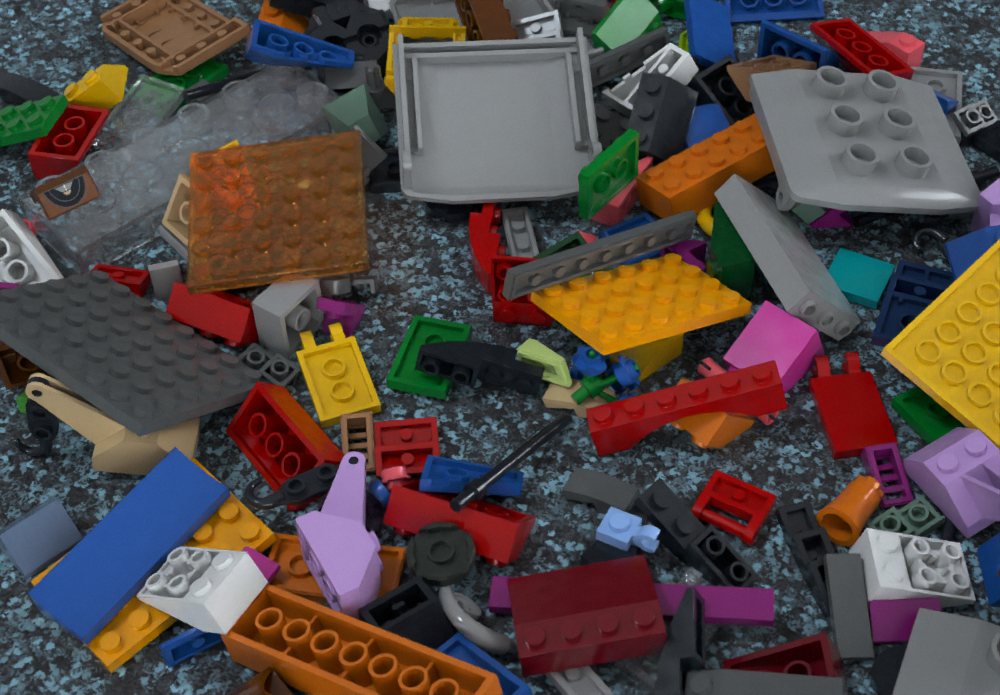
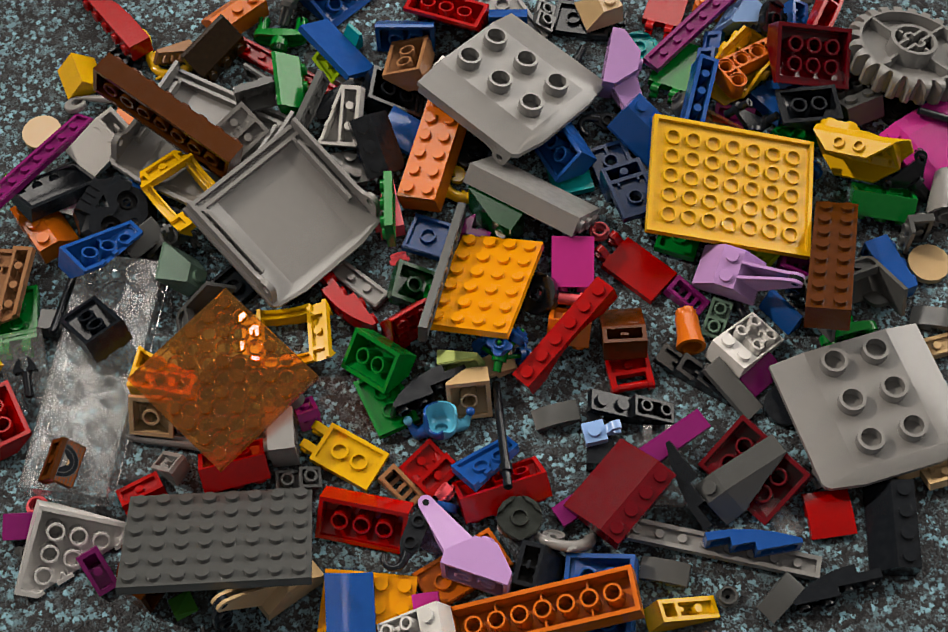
camera: 40 degrees left, 15 degrees up
(131, 114) = (26, 375): none -> black bar
(217, 109) = (96, 329): none -> black slope
(434, 232) = (318, 327): none -> yellow wedge
(458, 306) = (377, 360): none -> green slope
(462, 407) = (439, 421): none -> medium azure piece
(520, 401) = (471, 389): none -> tan slope
(710, 353) = (548, 297): none -> black plate
(740, 35) = (353, 36): none -> teal slope
(758, 457) = (623, 334): none -> reddish brown slope
(838, 345) = (599, 226): none -> coral plate
(871, 245) = (566, 154): none -> blue slope

